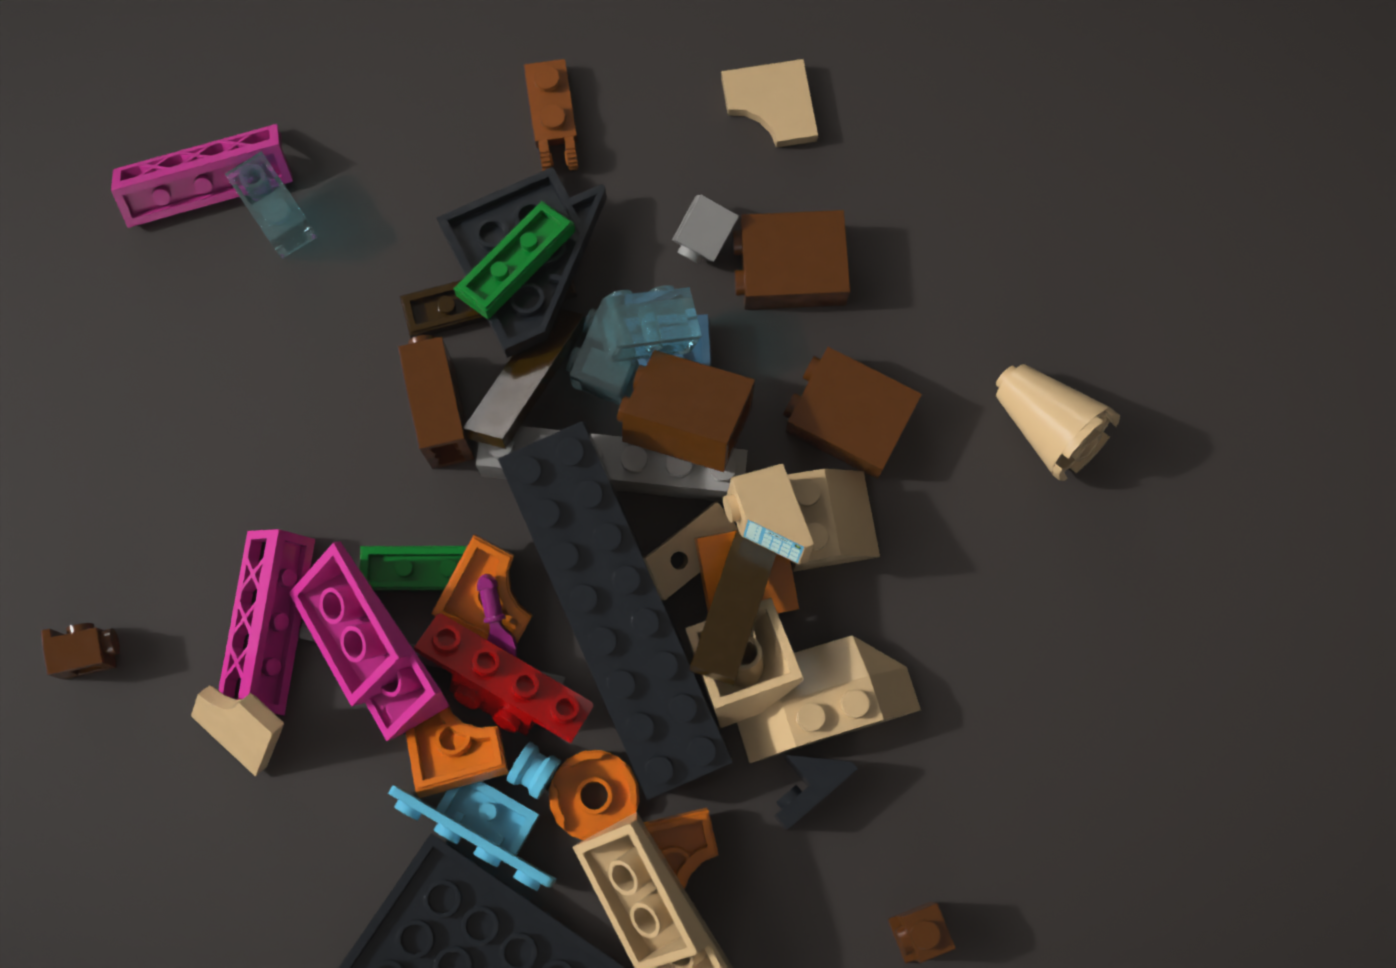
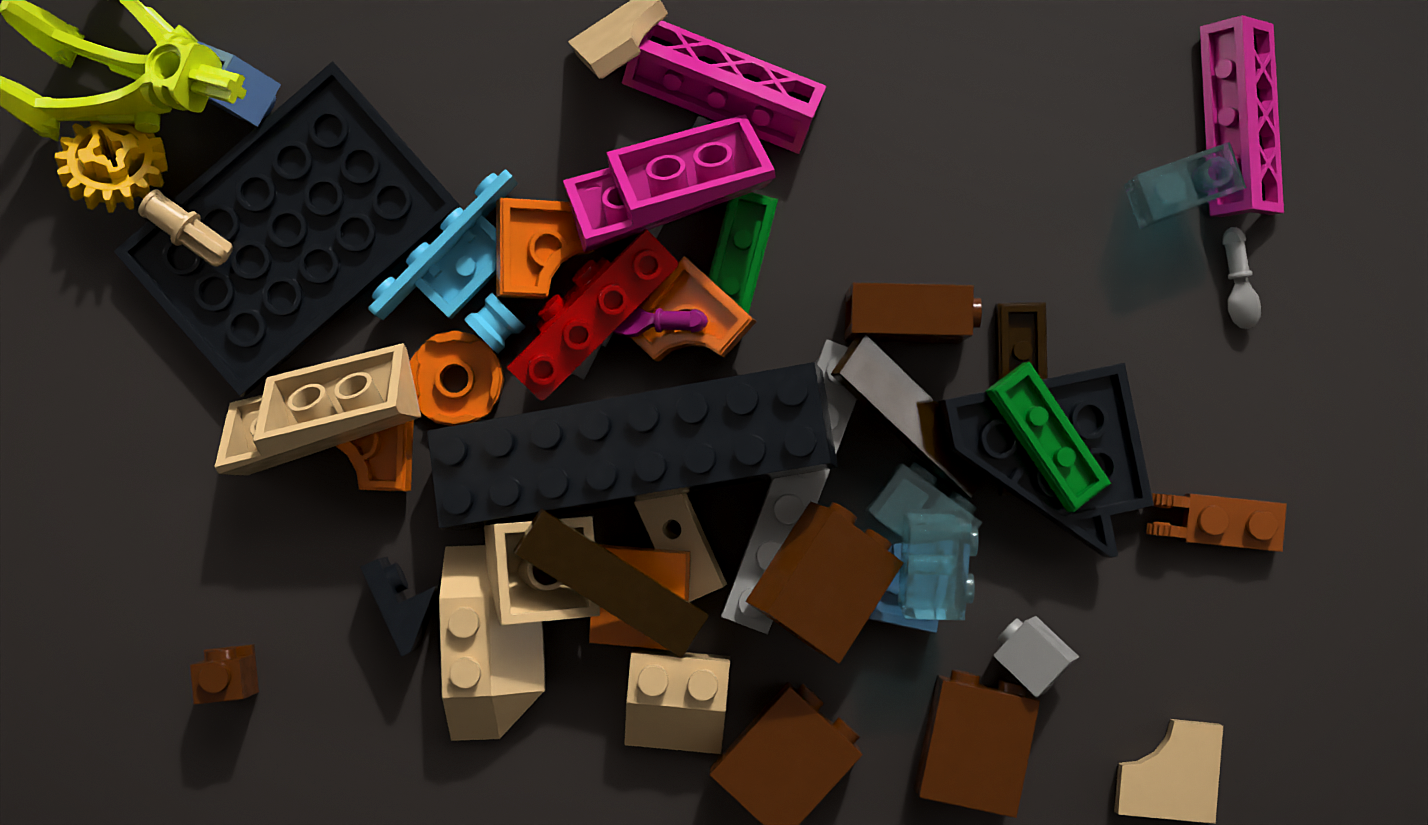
camera: 110 degrees right, 10 degrees up
(360, 138) = (1243, 301): none -> light grey piece
(769, 513) = (686, 638): tan slope -> none

